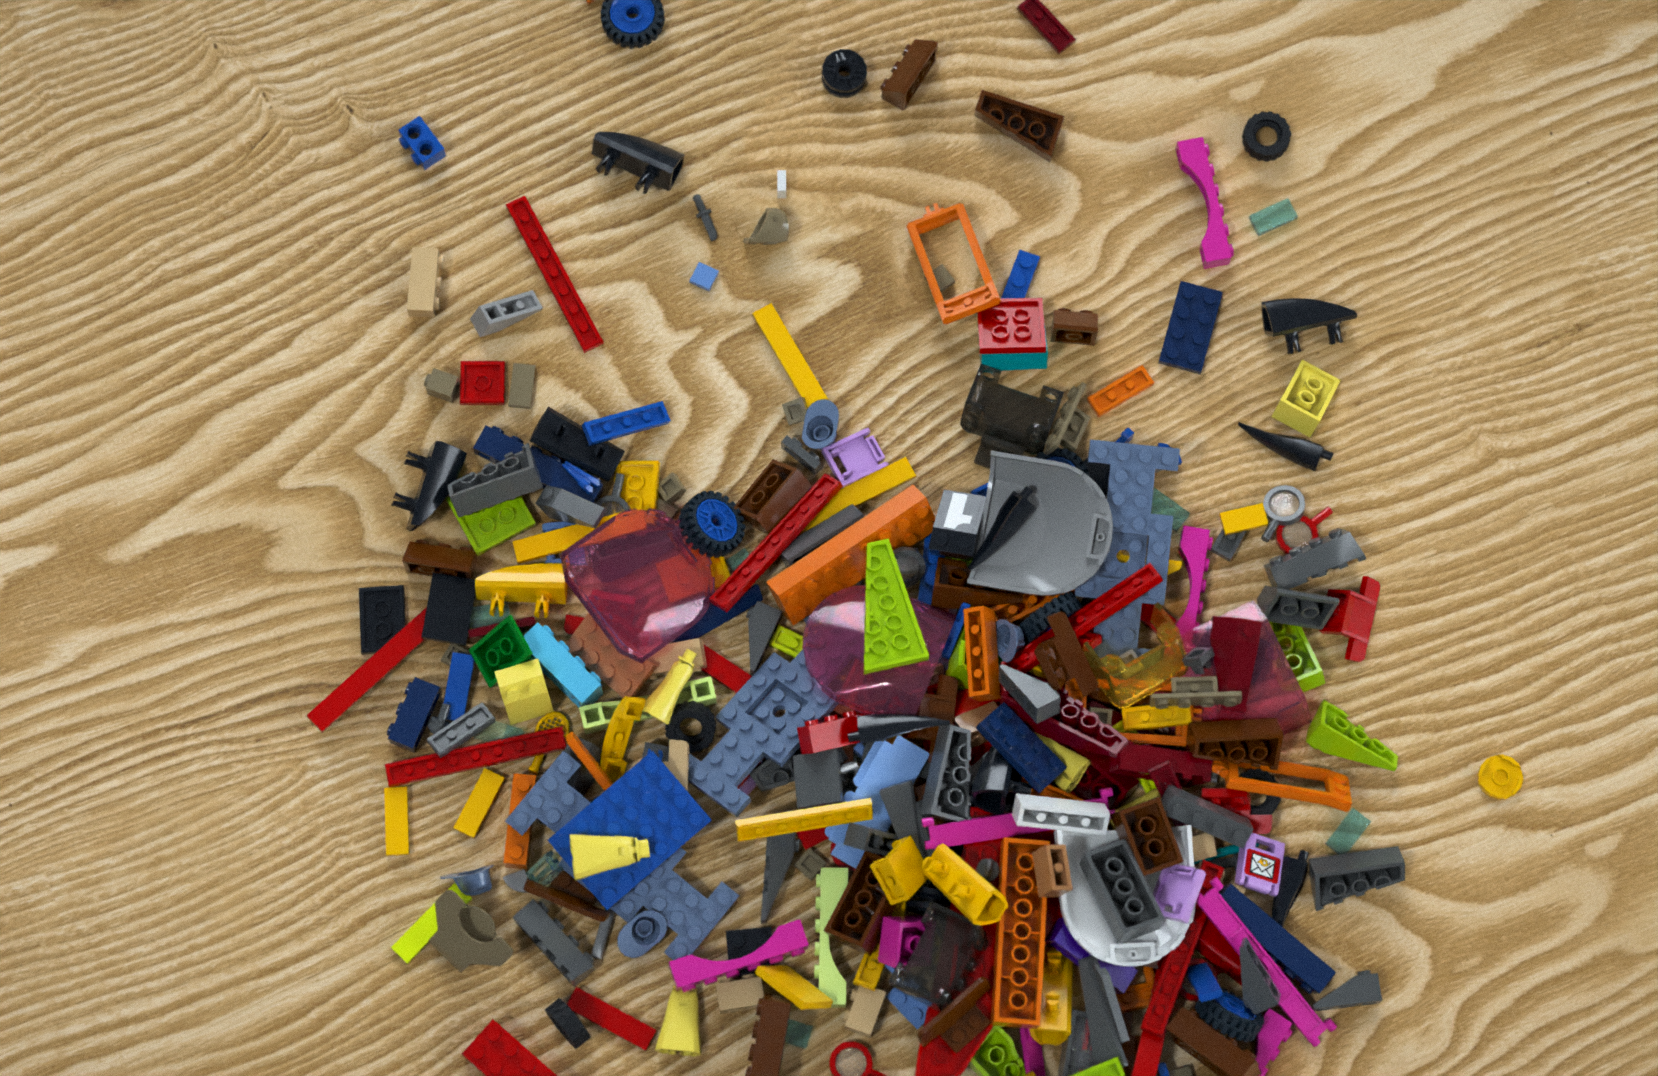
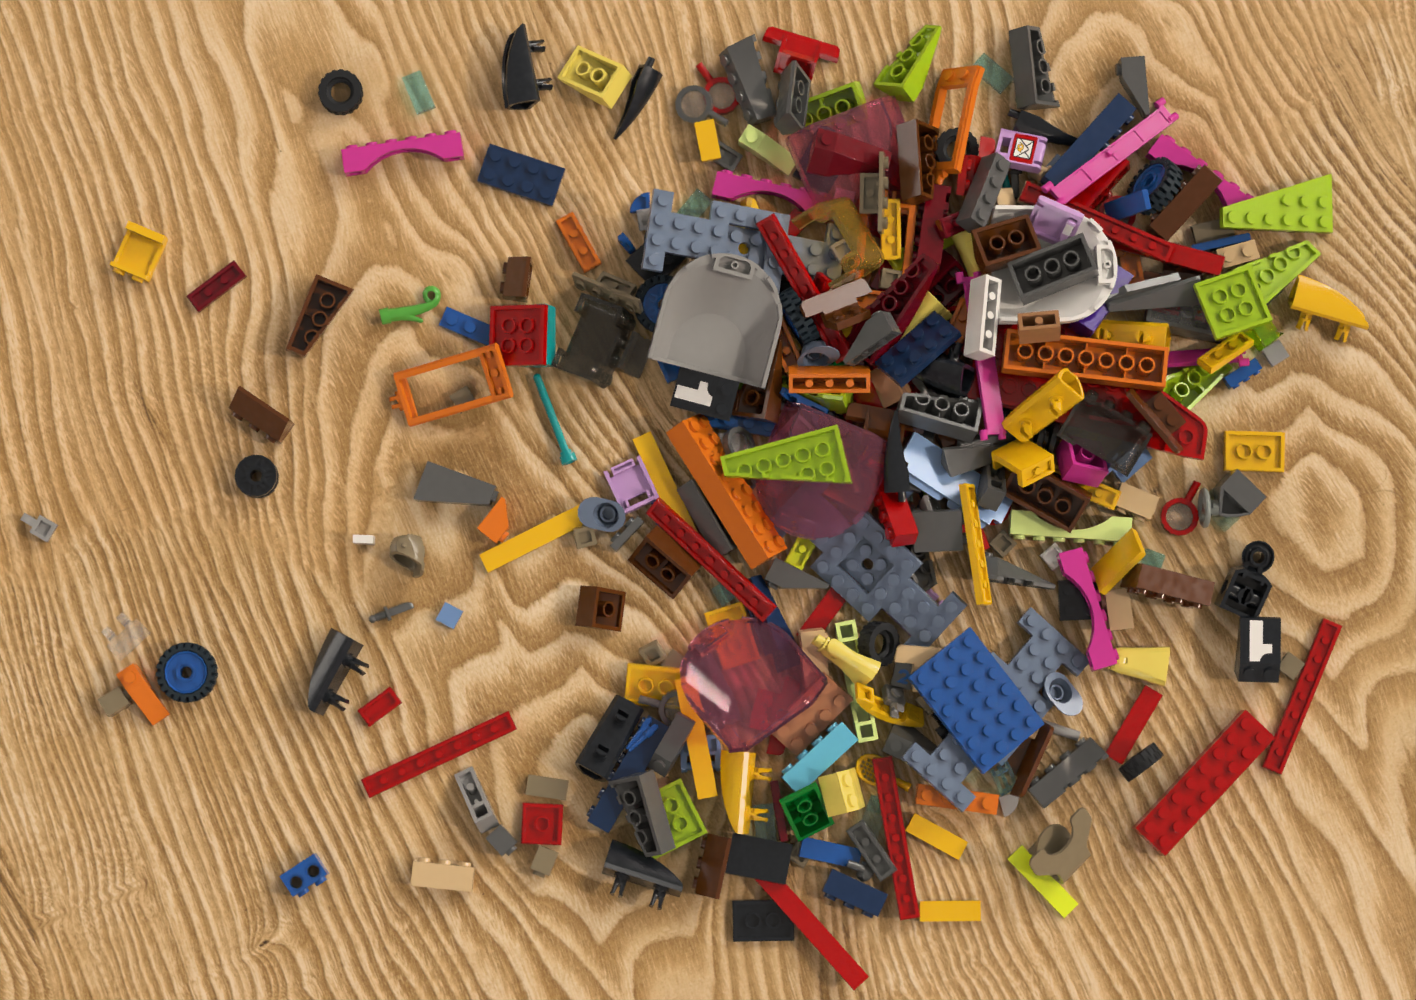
camera: 90 degrees left, 10 degrees up
(463, 341) = (502, 840): none -> dark grey brick
(473, 881) = (1007, 845): sand blue piece -> none
(588, 761) = (911, 734): orange tile -> none
(603, 211) = (379, 706): none -> red tile
(603, 853) = (1000, 726): light yellow piece -> none
(626, 423) = (591, 691): blue plate -> none
(630, 748) = (894, 698): none -> light grey plate
(712, 524) = (692, 616): wheel -> none
(717, 431) = (600, 608): none -> reddish brown slope
(800, 914) = (1049, 556): none -> white tile
(806, 318) = (496, 523): none -> orange slope
(843, 269) = (451, 487): none -> dark grey slope
(882, 388) = (567, 455): none -> teal piece
(988, 869) = (1025, 386): dark grey tile -> none
(1008, 521) = (706, 347): black piece -> none
(1030, 218) = (409, 313): none -> bright green plant
(1199, 659) = (843, 187): dark grey tile -> none
(1239, 583) = (766, 149): none -> yellowish green slope
(1257, 986) = (1135, 159): dark grey slope -> none

